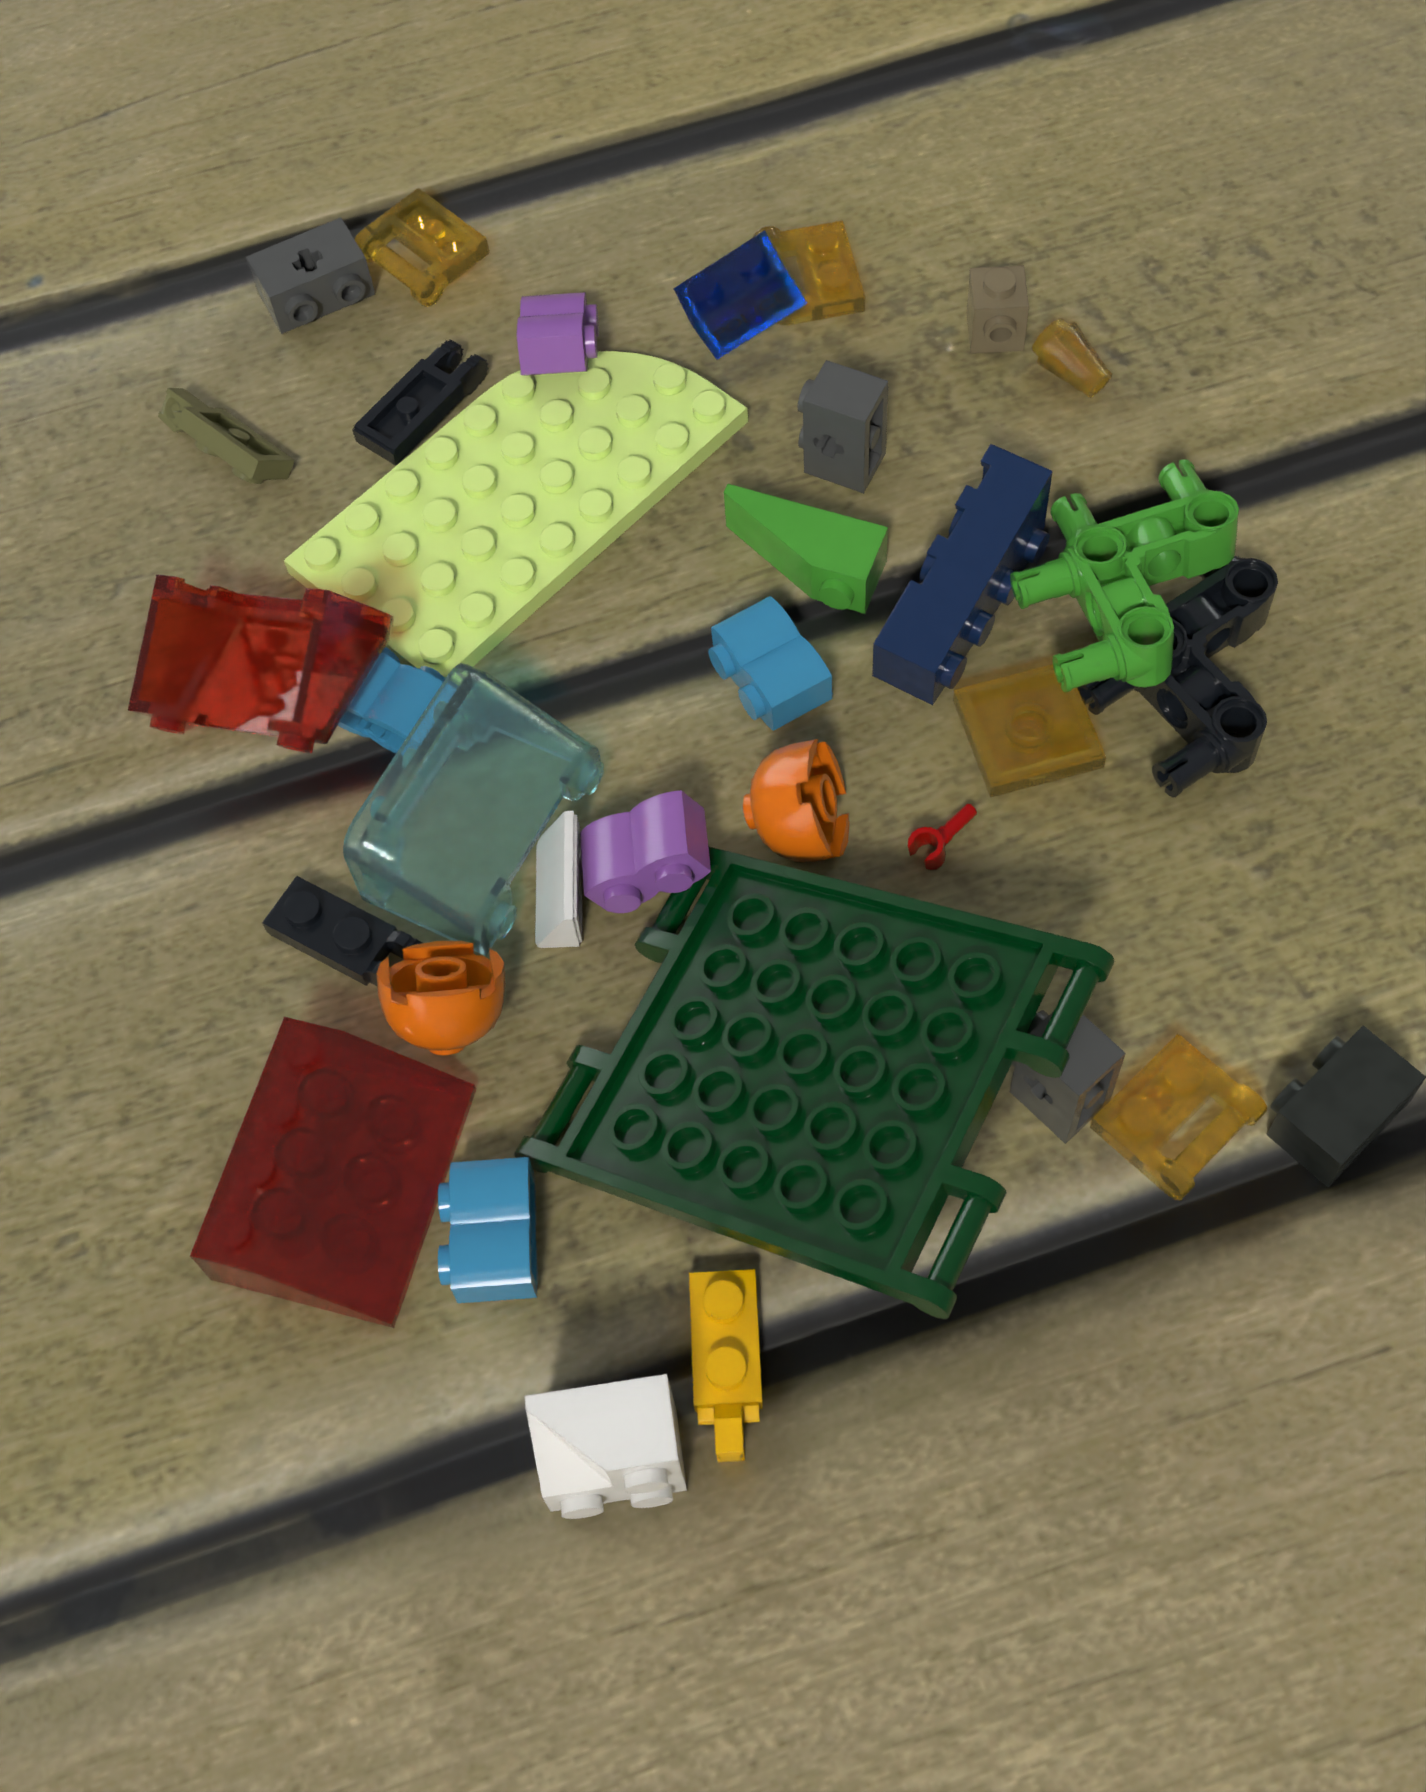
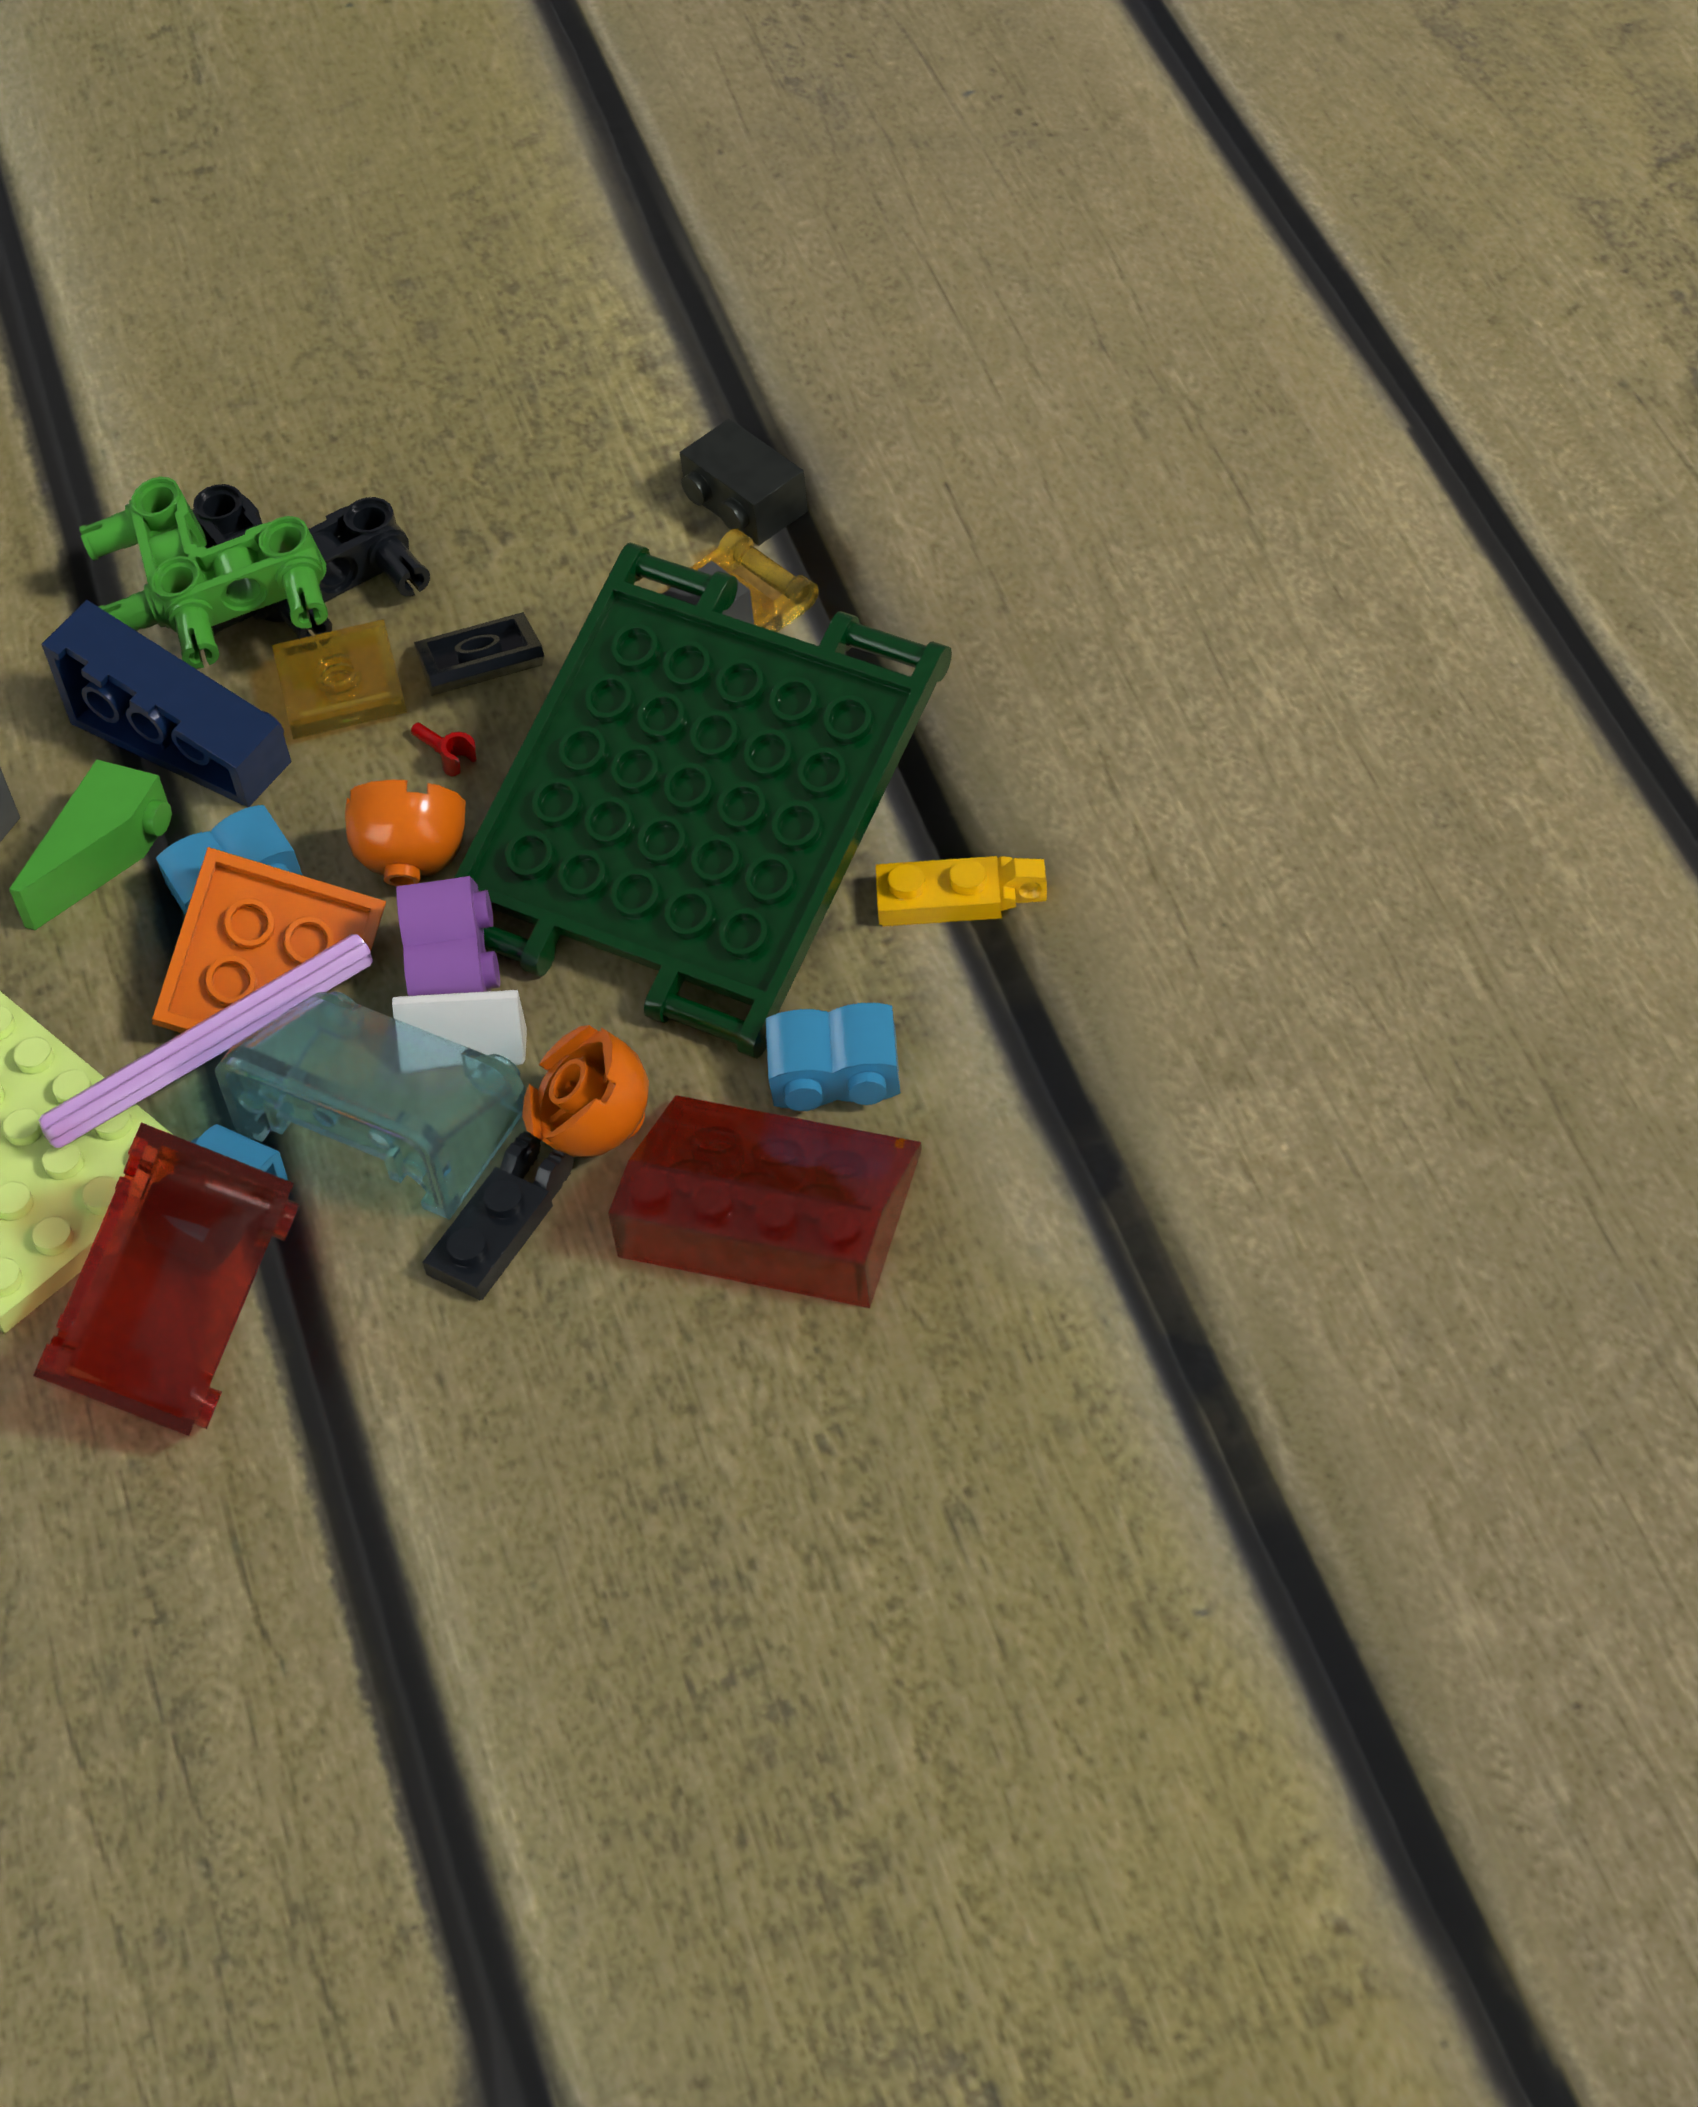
camera: 90 degrees left, 10 degrees down
(551, 672) = (202, 1042): none -> lavender axle
(607, 1445) = (1046, 933): white slope -> none
(666, 696) = (250, 928): none -> orange plate
(1065, 854) = (479, 653): none -> black slope

